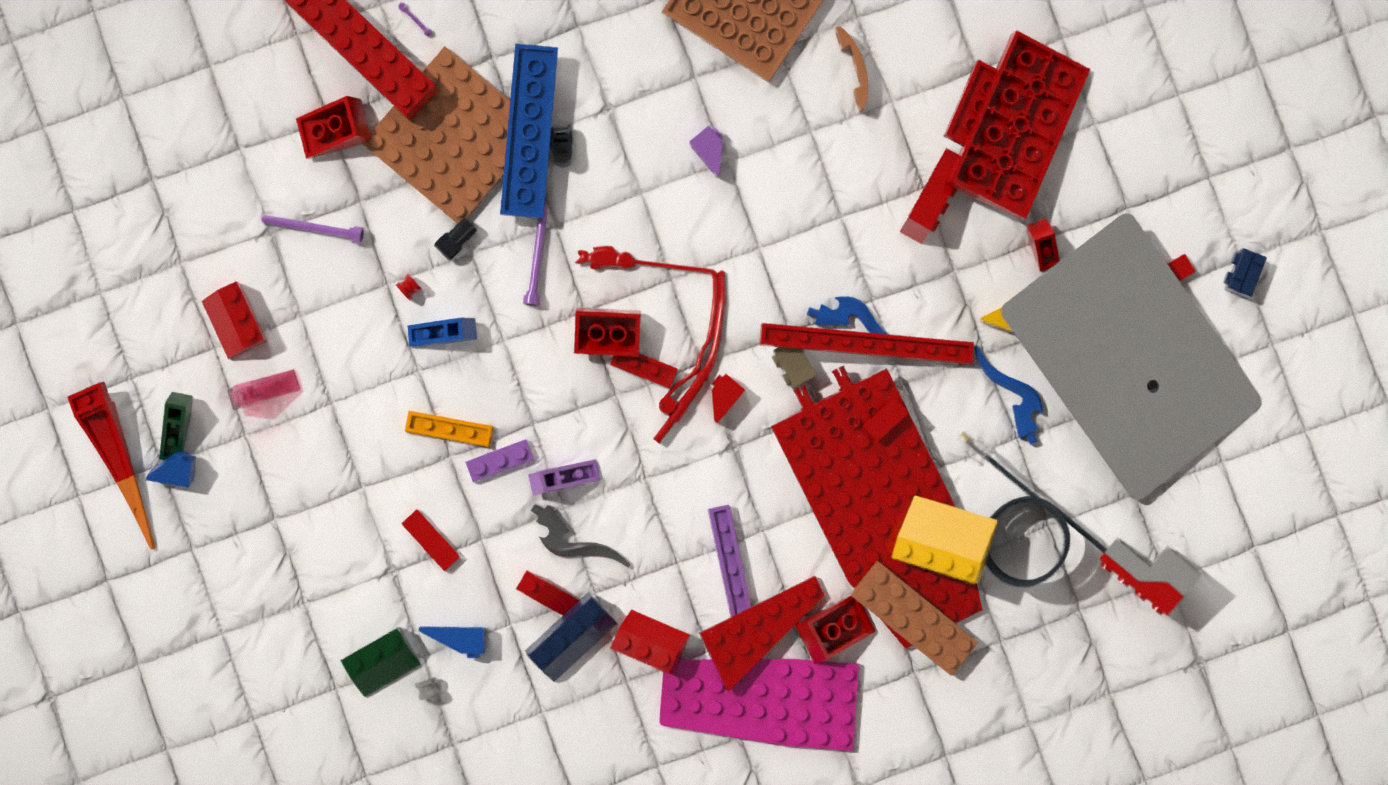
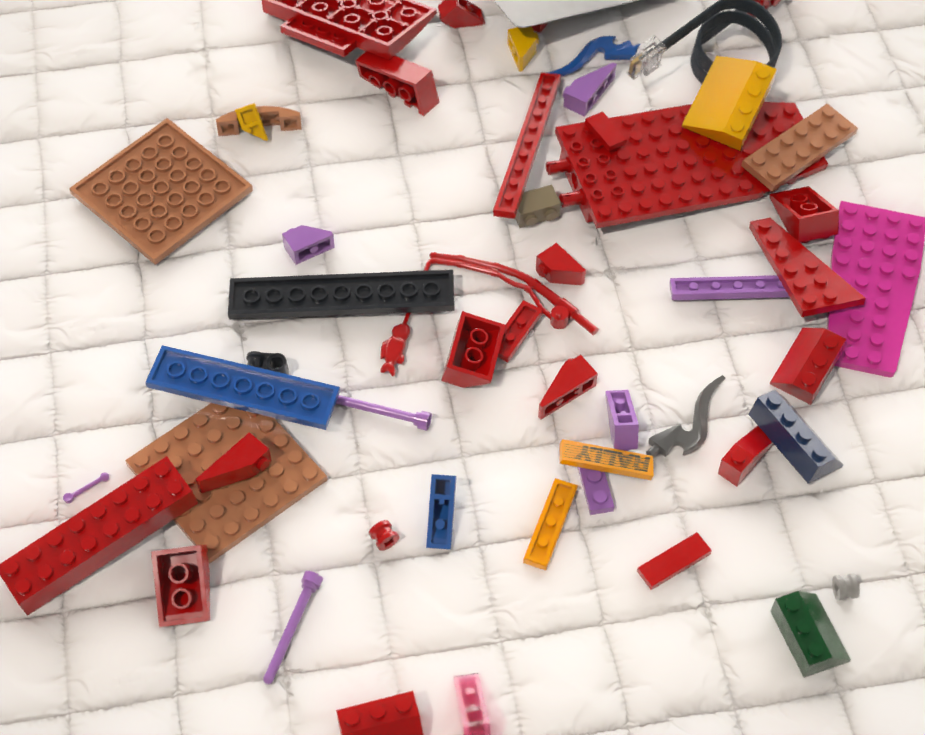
camera: 75 degrees left, 30 degrees down
(451, 243) = (342, 484): black piece -> none
(452, 150) = (237, 464): none -> red slope
(461, 639) = (791, 541): blue slope -> none
(514, 468) = (606, 459): none -> light orange tile
(594, 425) = (571, 382): none -> red slope
(653, 197) = (341, 294): none -> black plate
(839, 316) = (495, 168): blue piece -> none
(846, 61) = (251, 121): none -> yellow tile
(956, 392) = (587, 89): none -> medium lavender slope

